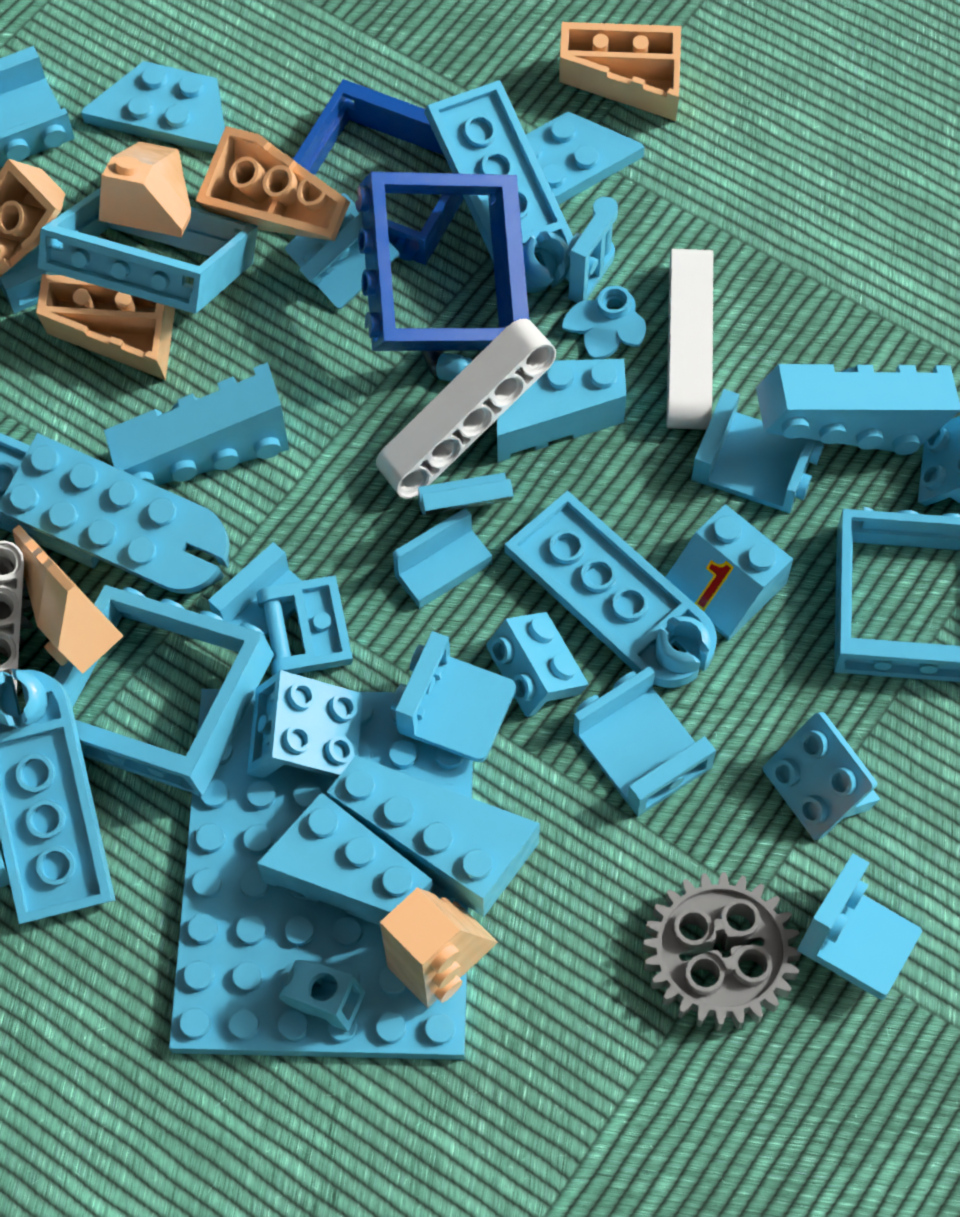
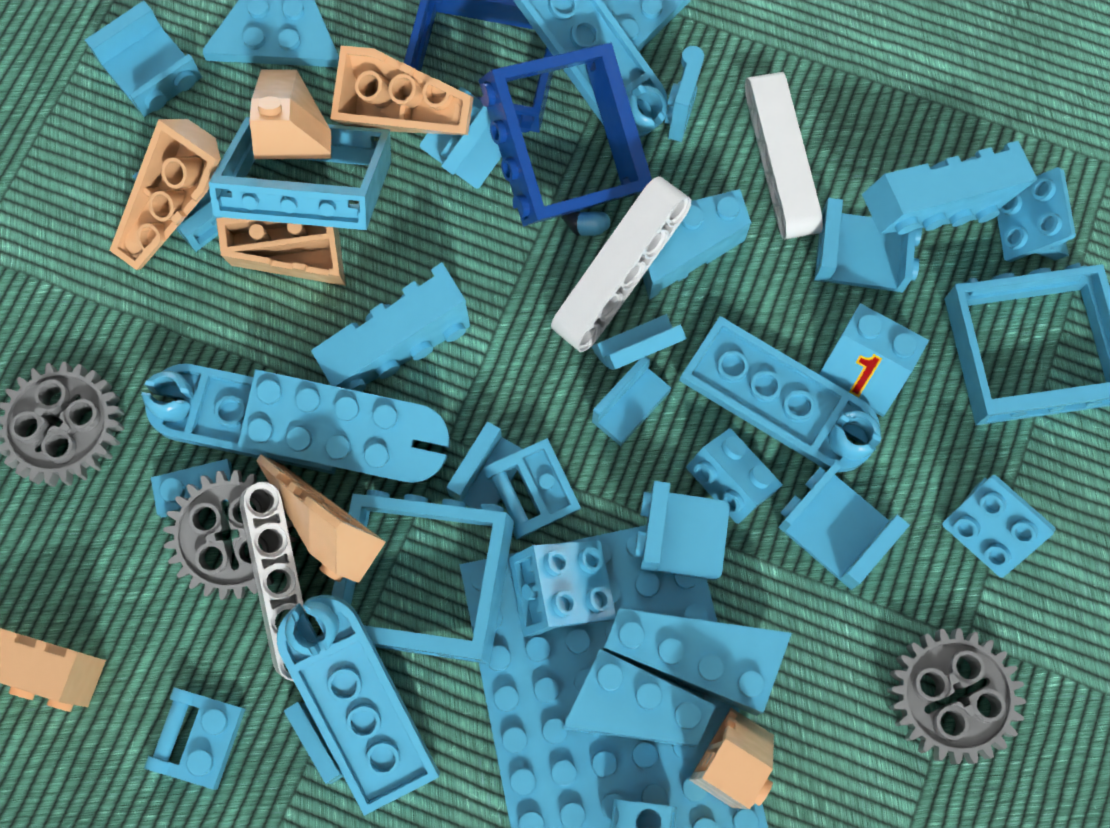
camera: 15 degrees left, 10 degrees up
(604, 326) = (708, 159): medium azure plate -> none
(859, 935) = (1064, 656): medium azure bracket -> none

